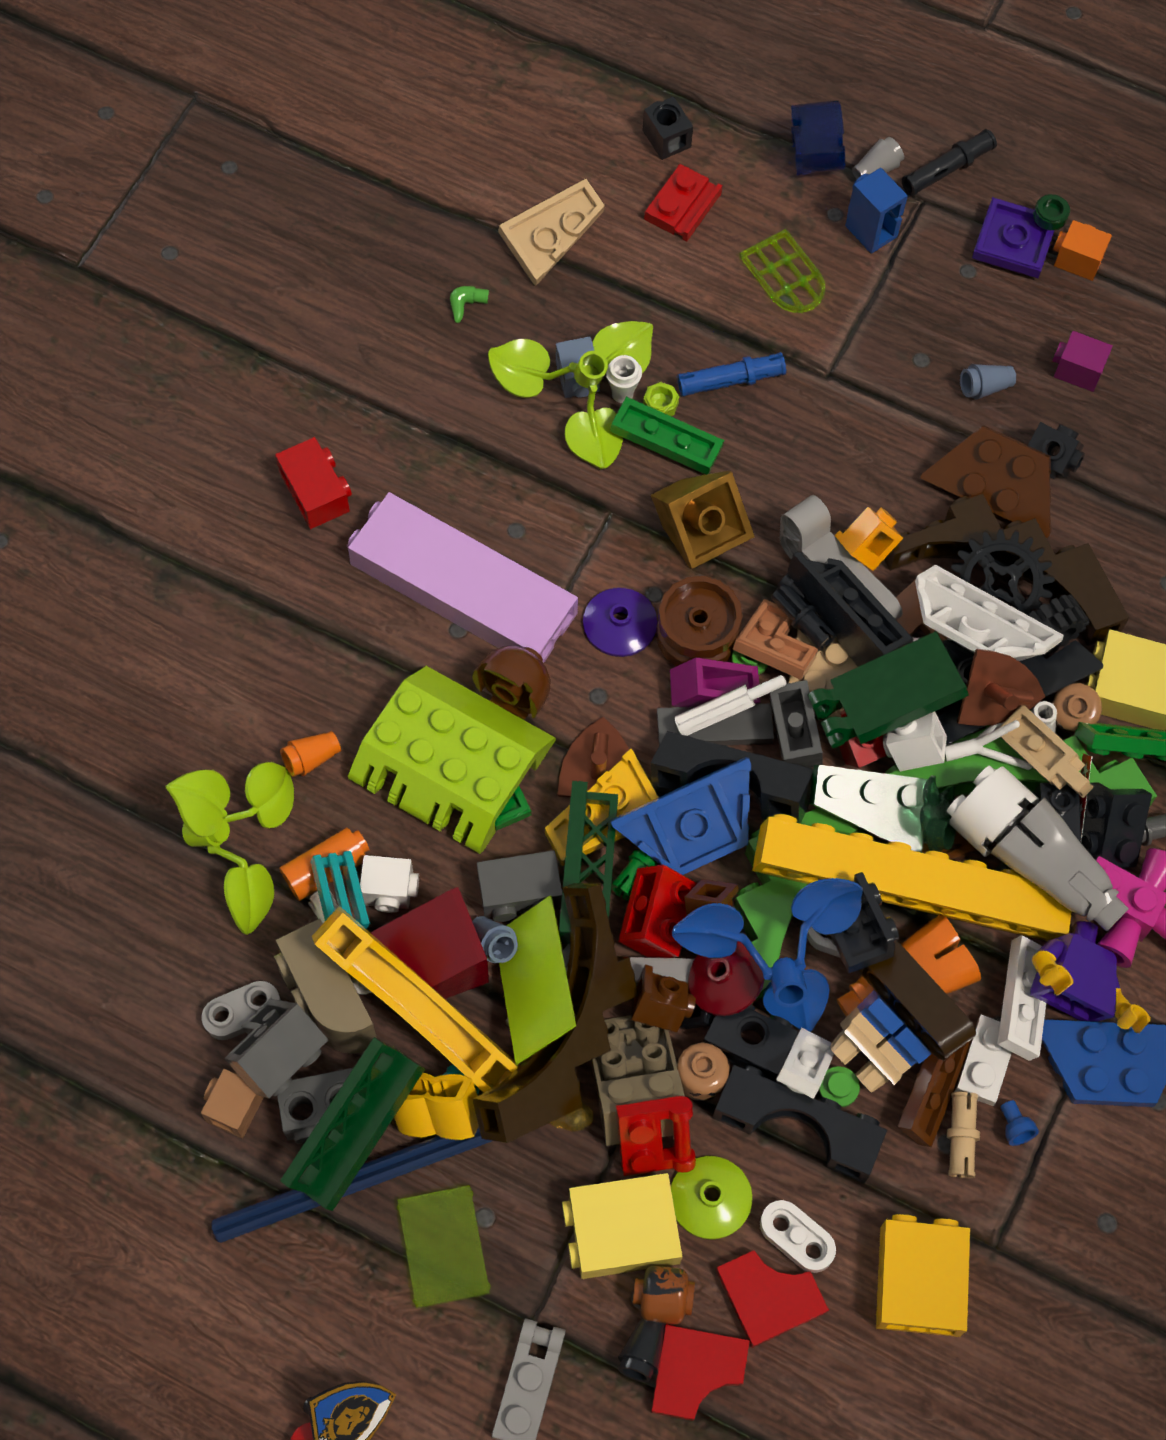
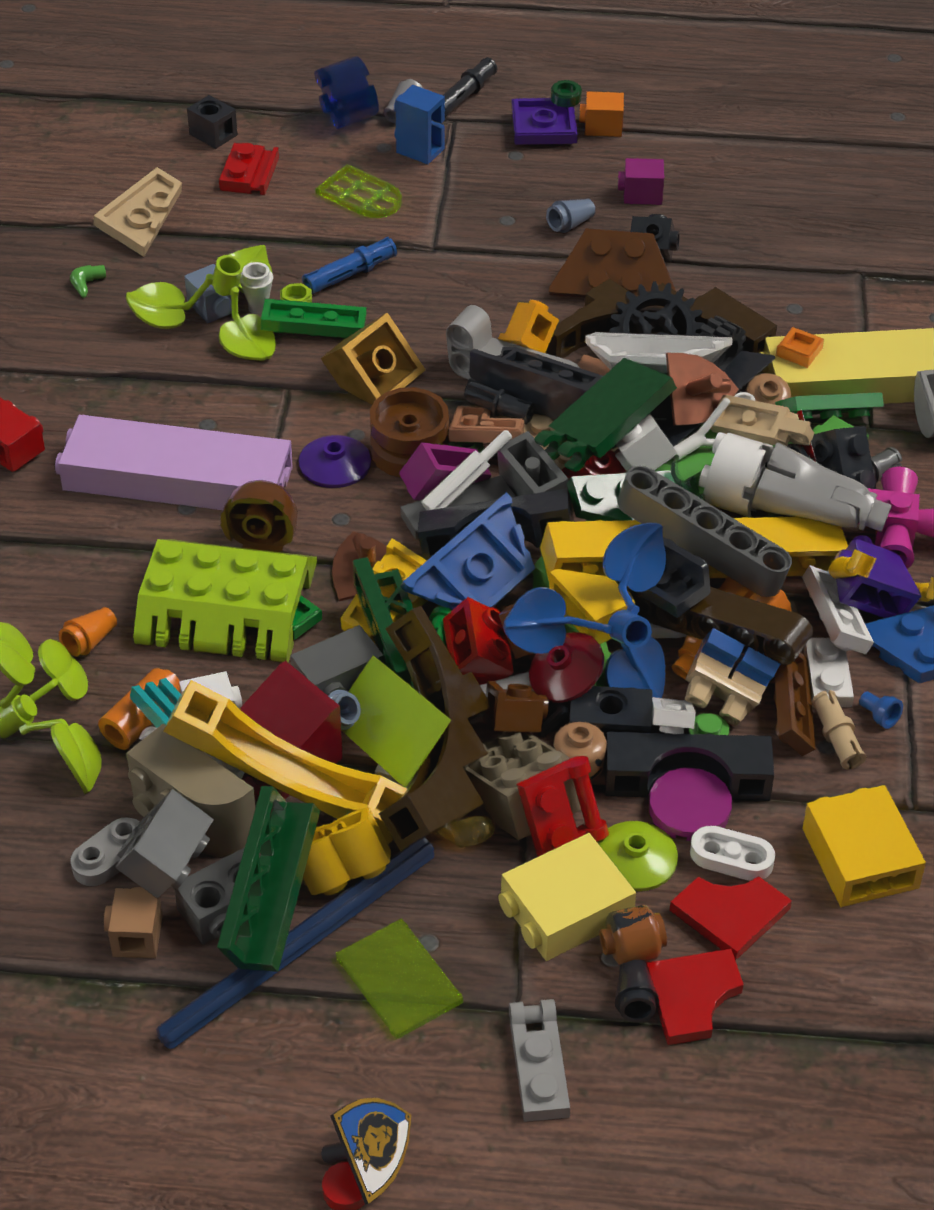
camera: 20 degrees left, 20 degrees down
(774, 919) = (588, 598): none -> yellow slope
(785, 1162) = (688, 801): none -> magenta tile
(938, 887) = (705, 531): none -> dark grey beam
(1137, 659) = (800, 347): none -> orange tile

